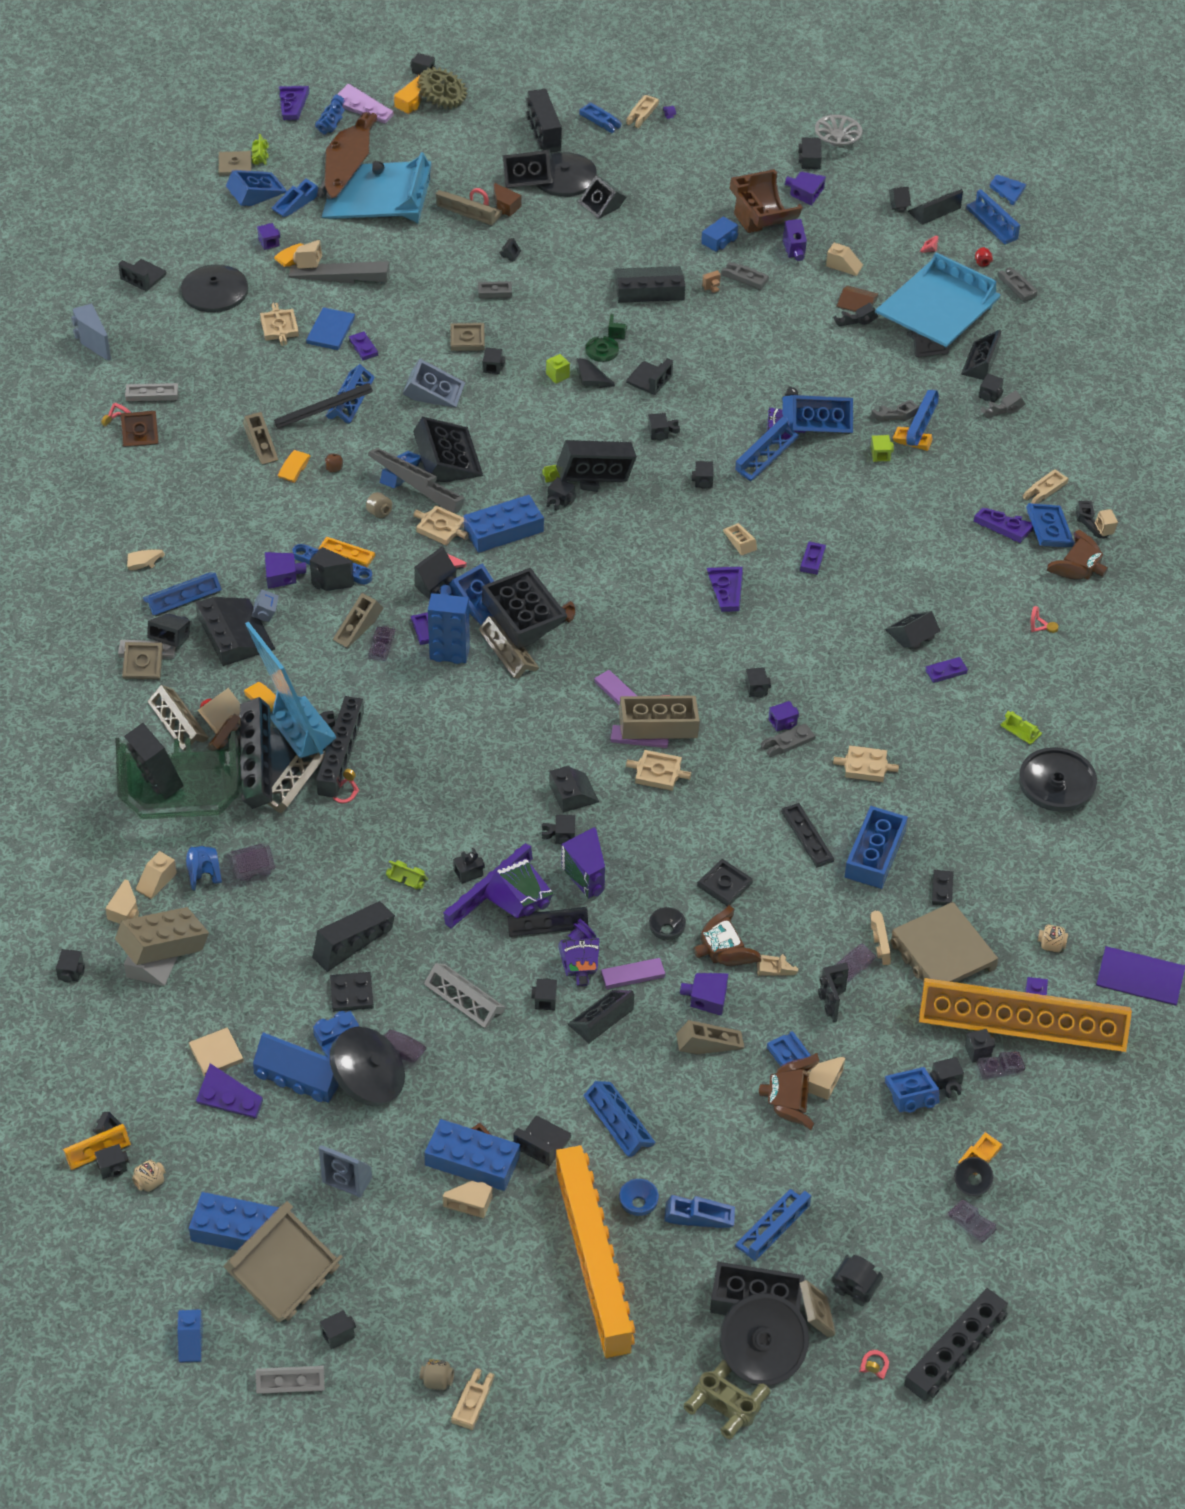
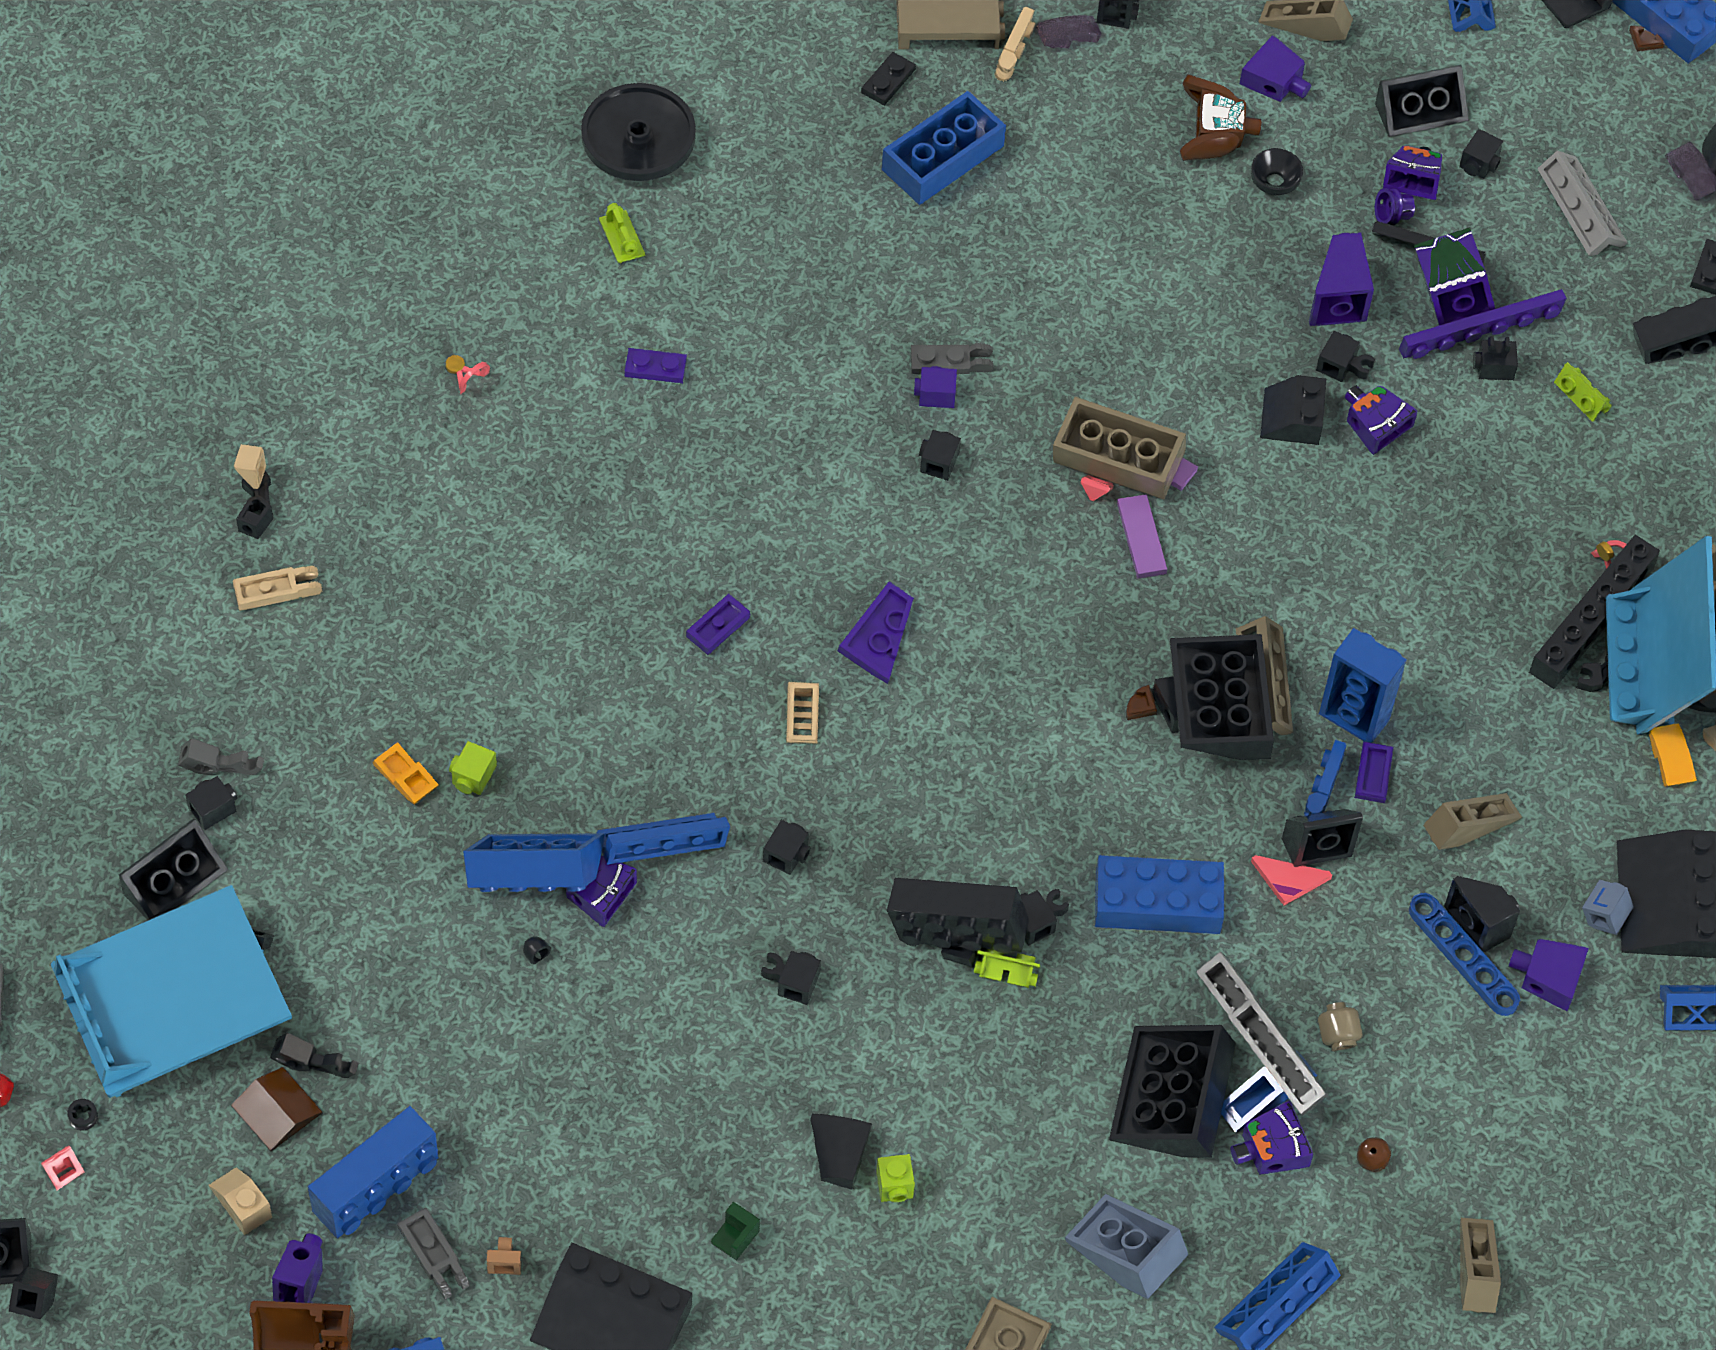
camera: 155 degrees left, 10 degrees up
(293, 465) = (1442, 1182): light orange slope -> none
(323, 405) = (1346, 1266): black axle -> none
(356, 554) = (1429, 970): light orange tile -> none
(381, 643) = (1451, 772): clear purple slope -> none
(386, 442) = (1274, 1142): none -> dark purple torso
(440, 525) = (1257, 946): tan plate -> none
(470, 586) = (1267, 788): blue slope -> none
(493, 360) = (994, 1254): black brick -> none
(522, 805) = (1378, 416): none -> dark purple torso
(602, 349) = (787, 1215): dark green tile -> none
(633, 973) = (1351, 141): medium lavender tile -> none
(651, 377) = (744, 1092): black bracket -> none
(658, 770) = (1159, 389): tan plate -> none
(724, 882) = (1165, 200): black plate -> none
(775, 966) = (1166, 76): tan slope -> none
(791, 280) = (374, 1173): none -> blue brick
(807, 835) = (1013, 220): black tile -> none
(866, 764) = (868, 278): tan plate -> none
(904, 412) = (410, 835): dark grey piece -> none
(914, 629) = (660, 440): black slope -> none
(922, 418) = (366, 791): blue beam -> none
(1001, 524) = (387, 550): dark purple wing -> none
(1050, 525) = (325, 518): blue tile -> none
(1081, 560) = (332, 435): reddish brown torso -> none

